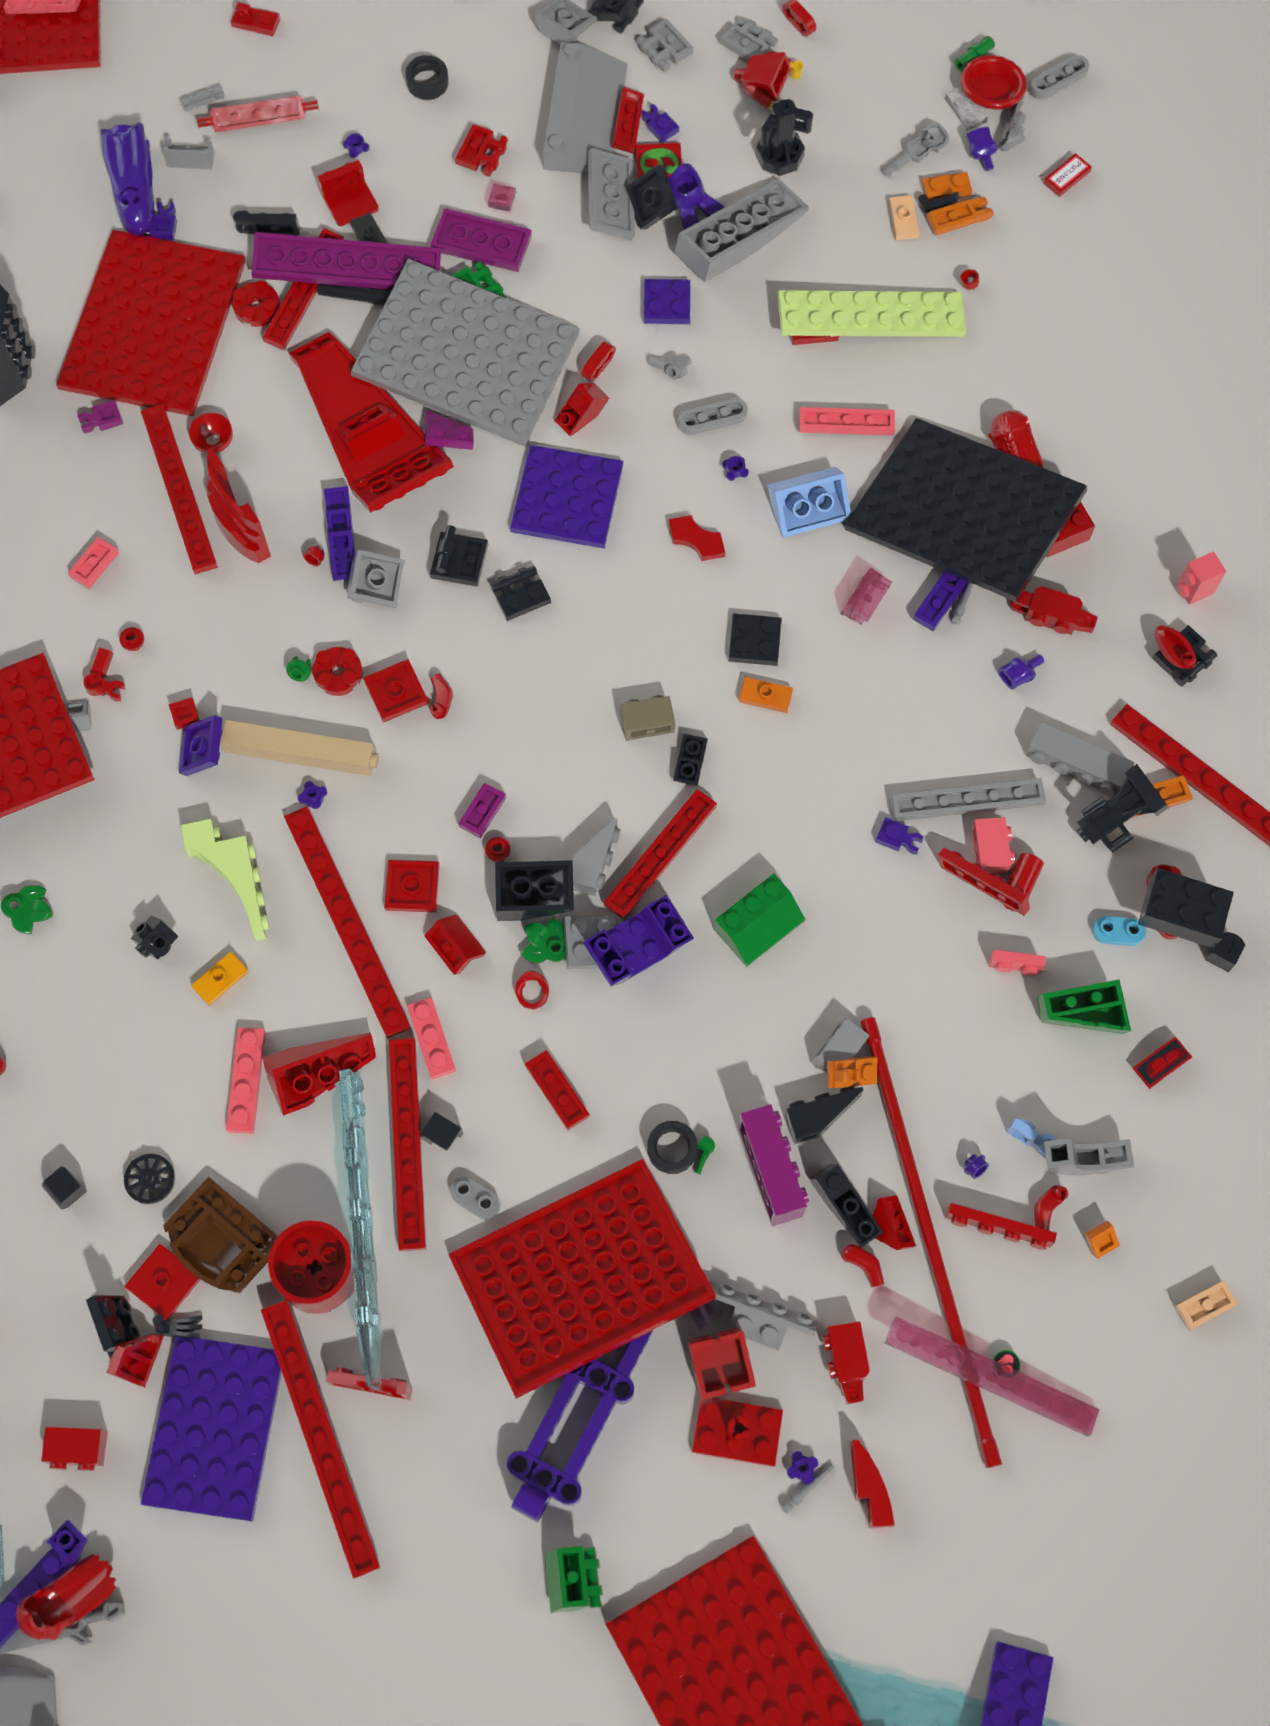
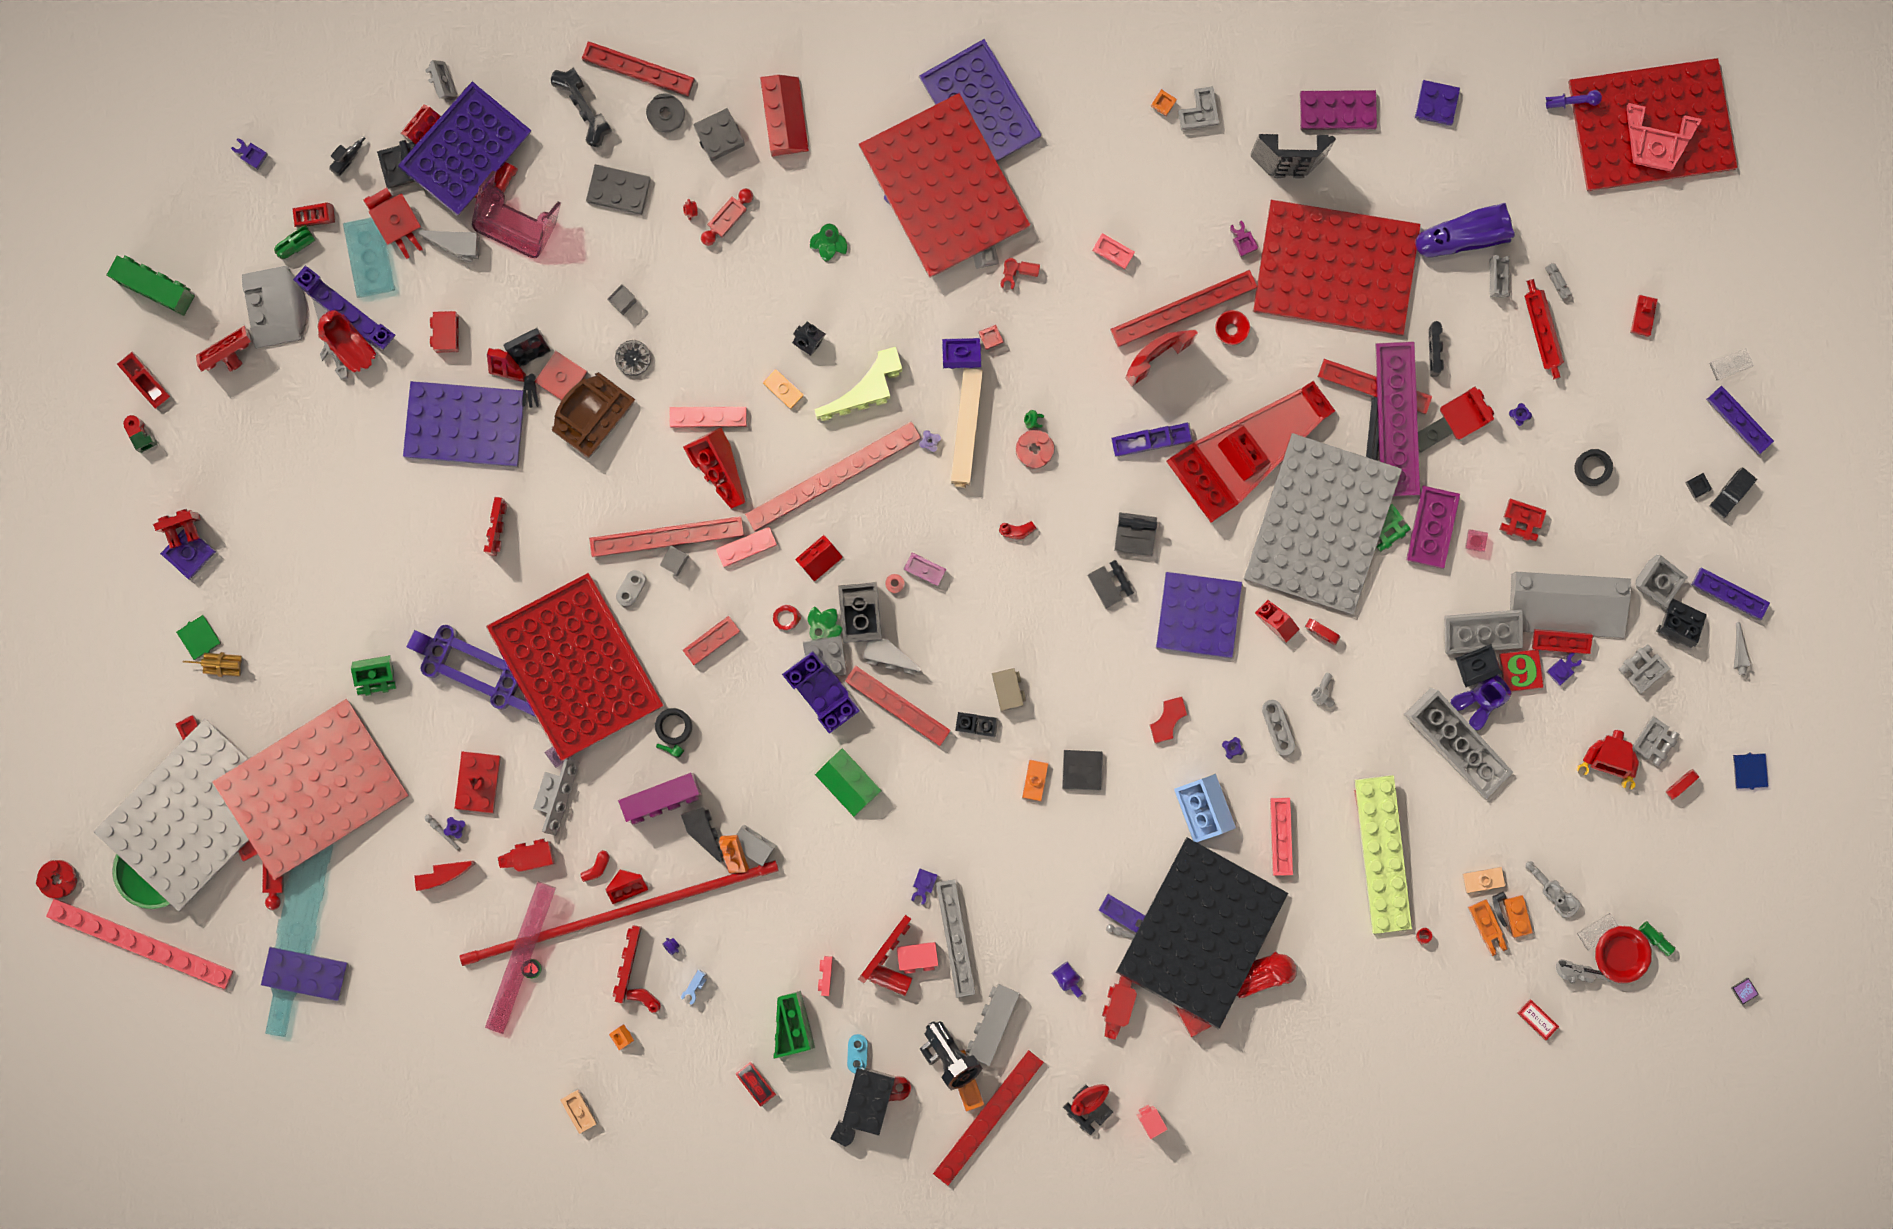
camera: 85 degrees right, 15 degrees up
(136, 643) = (1051, 295): red plate -> none
(165, 223) = (1428, 265): dark purple plate -> none
(252, 292) = (1354, 358): red plate -> none
(303, 1248) = (560, 469): red brick -> none
(314, 555) = (1132, 421): red hinge -> none
(320, 1440) = (458, 496): red plate -> none
(361, 1226) = (601, 510): clear light blue plate -> none
(375, 579) = (1110, 470): light grey slope -> none
(395, 690) = (1019, 495): red plate -> none
(412, 886) = (863, 522): red tile -> none
(447, 432) = (1247, 514): magenta wing -> none
(667, 301) = (1386, 684): dark purple plate -> none
(721, 1362) = (522, 767): red piece -> none
(780, 139) = (1547, 770): black piece -> none
(846, 1204) = (637, 852): black slope -> none
(866, 596) = (1122, 856): clear pink hinge -> none
(982, 146) = (1558, 945): dark purple piece -> none
(1046, 83) = (1645, 1017): light grey plate -> none
(1073, 1158) = (679, 1025): light grey arch -> none

